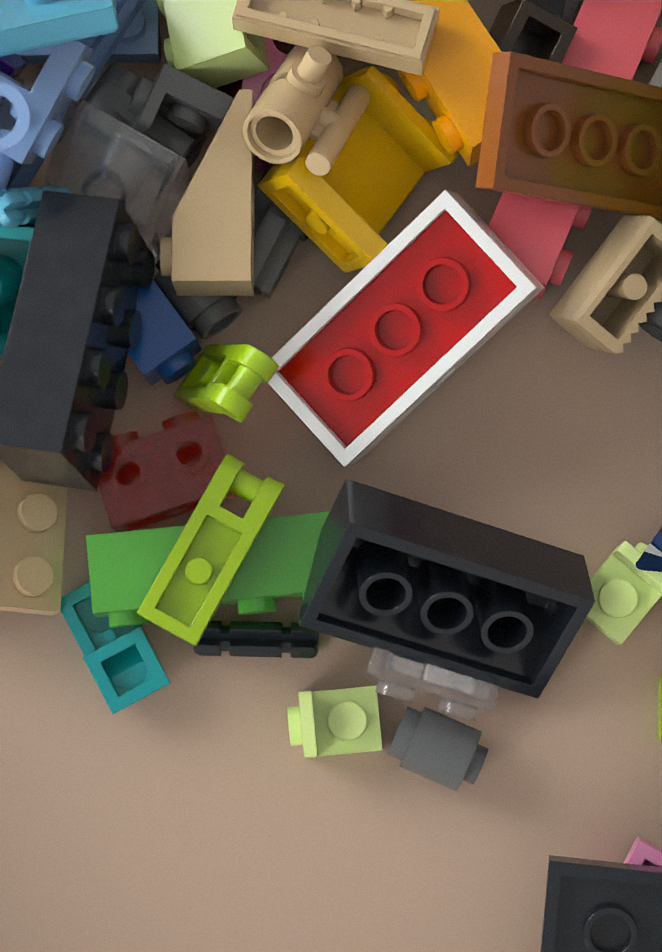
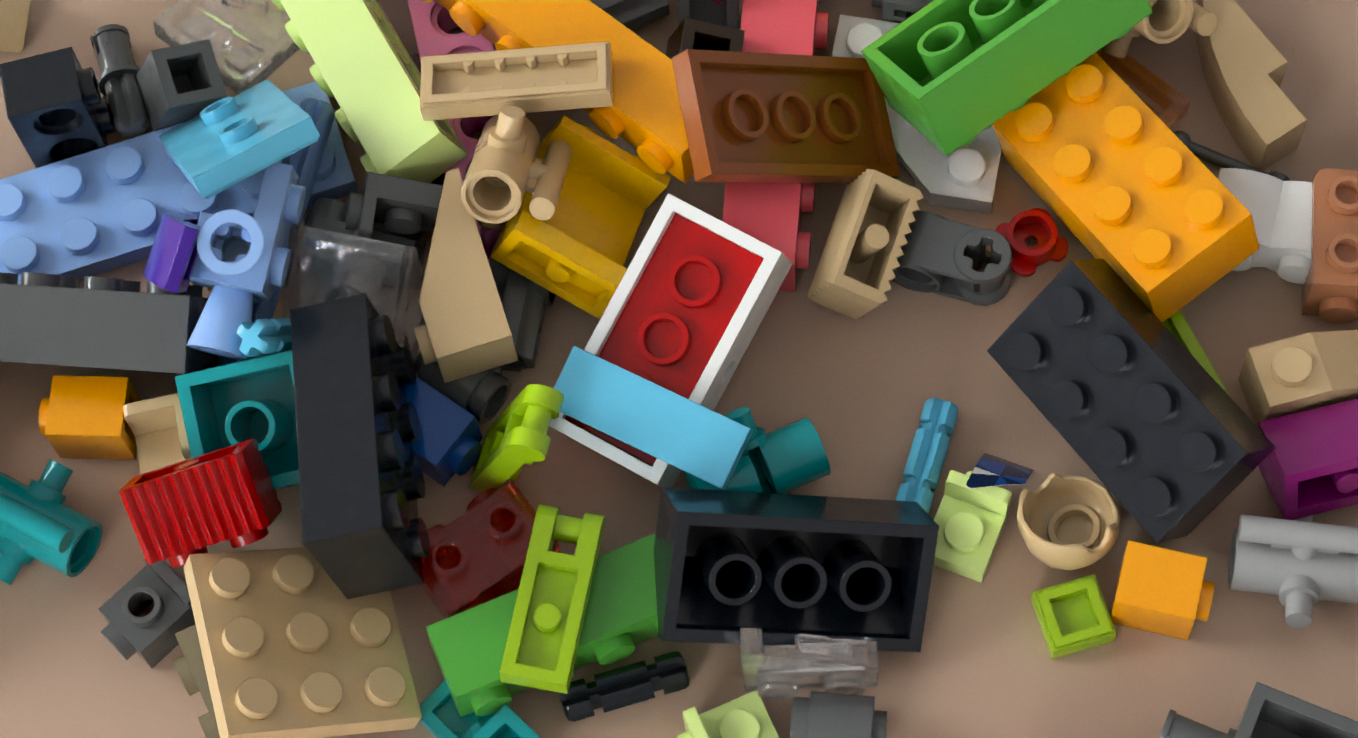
camera: 15 degrees left, 15 degrees down
(357, 405) = (651, 418): none -> medium azure tile
(448, 469) = (774, 459): none -> teal pin
(609, 508) = (928, 452): none -> medium azure axle

